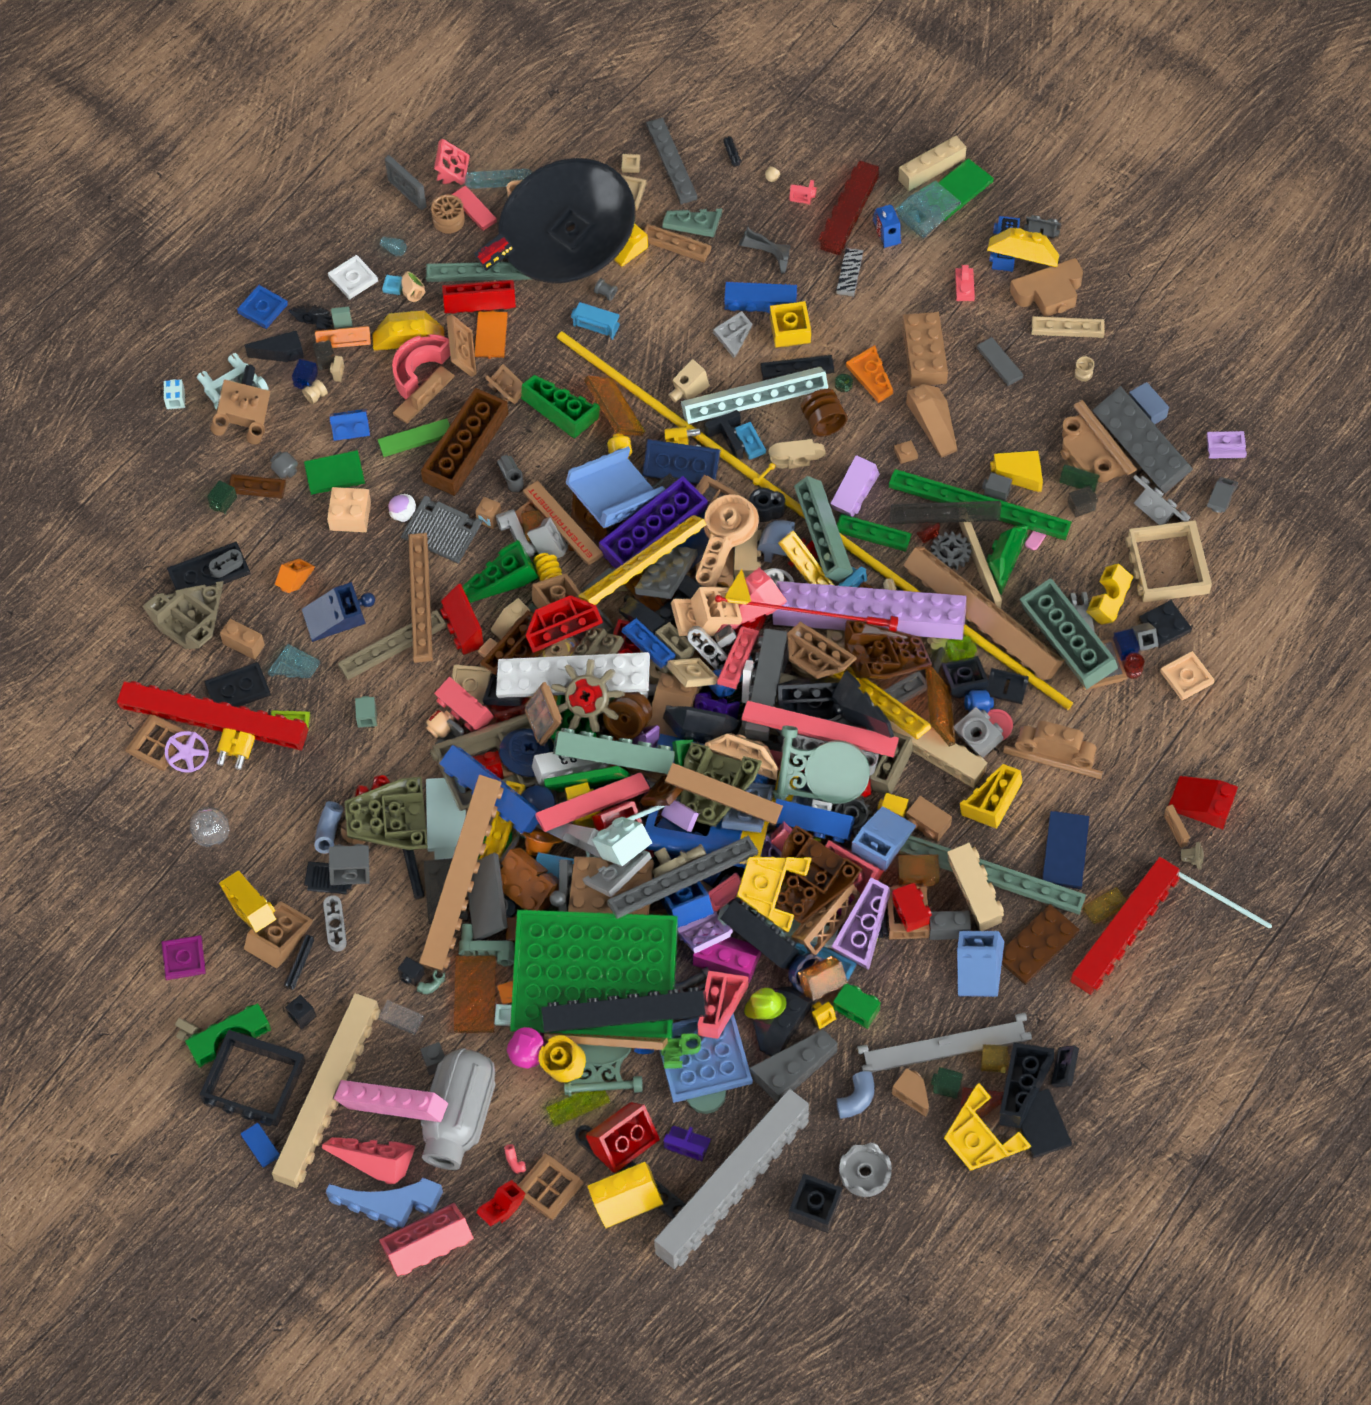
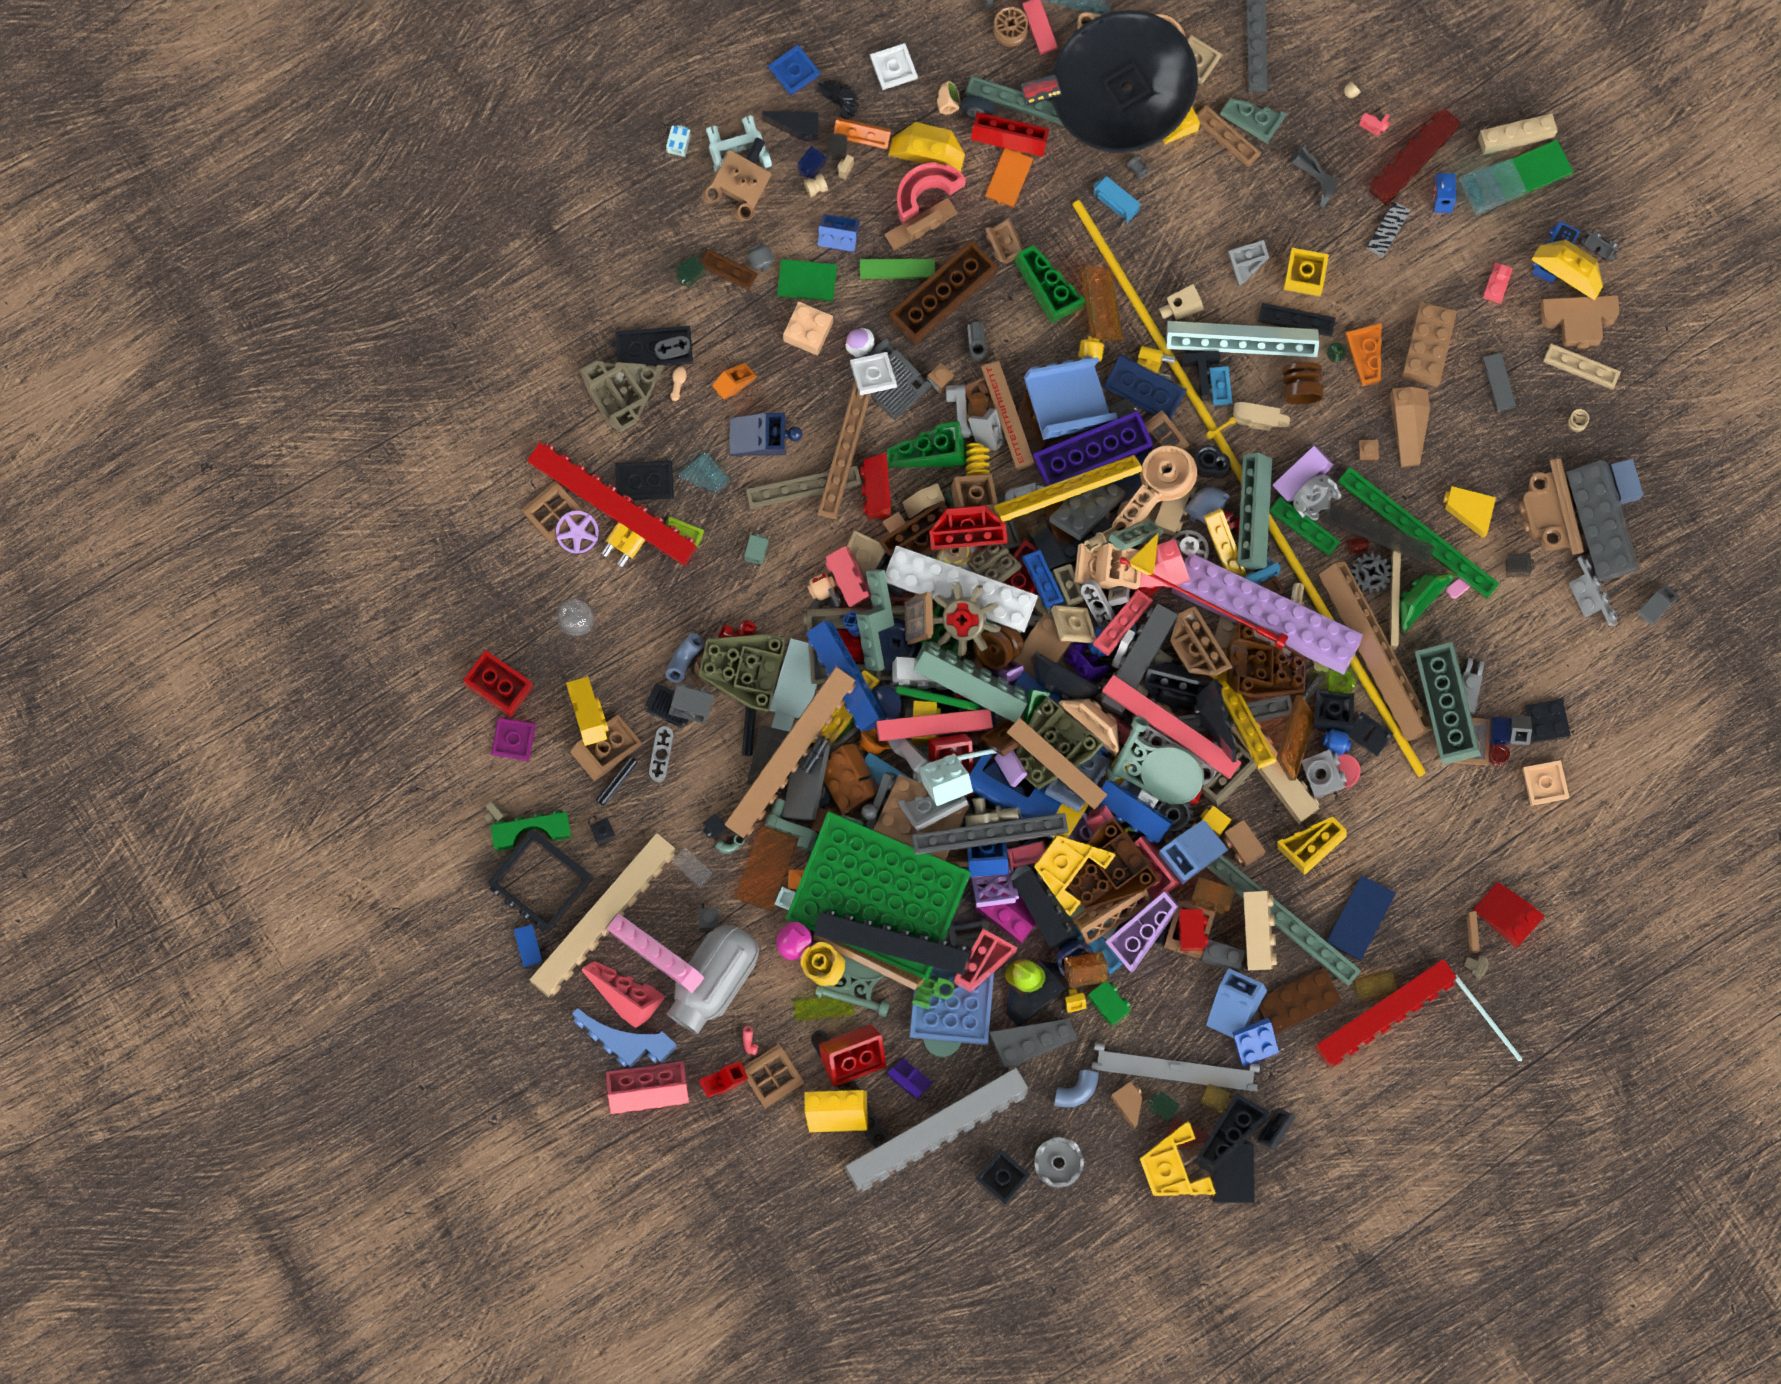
camera: 15 degrees right, 15 degrees up
(151, 909) = (498, 683): none -> red brick
(241, 590) = (679, 378): none -> light nougat piece
(242, 639) = (664, 433): medium nougat brick -> none
(341, 317) = (866, 115): sand green tile -> none
(392, 285) = (930, 87): medium azure tile -> none
(394, 246) = (945, 44): clear light blue cone -> none
(424, 525) = (873, 373): none -> white plate
(436, 280) = (973, 104): none -> black wheel
(461, 345) = (974, 185): medium nougat tile -> none
(483, 742) = (851, 623): none -> blue wheel
(486, 865) = (815, 754): none -> black pin
(500, 731) = (875, 620): none -> sand green bracket
(631, 163) = (1214, 28): tan plate -> none
(689, 590) = (1099, 540): none -> tan axle
(718, 578) = (1135, 535): none -> sand green plate
(732, 151) = (1321, 48): black axle -> none
(758, 296) = (1287, 229): blue brick -> none
(873, 499) = (1315, 496): none -> light grey plate
(997, 487) = (1441, 521): dark grey brick -> none
(1012, 992) = (1255, 1042): none -> plate
(1056, 747) = (1389, 816): medium nougat brick -> none
(1078, 478) = (1525, 539): clear green tile -> none
(1106, 606) = (1516, 665): yellow arch -> none
(1163, 532) = (1583, 624): tan window -> none
(1226, 444) = (1684, 552): lavender plate -> none

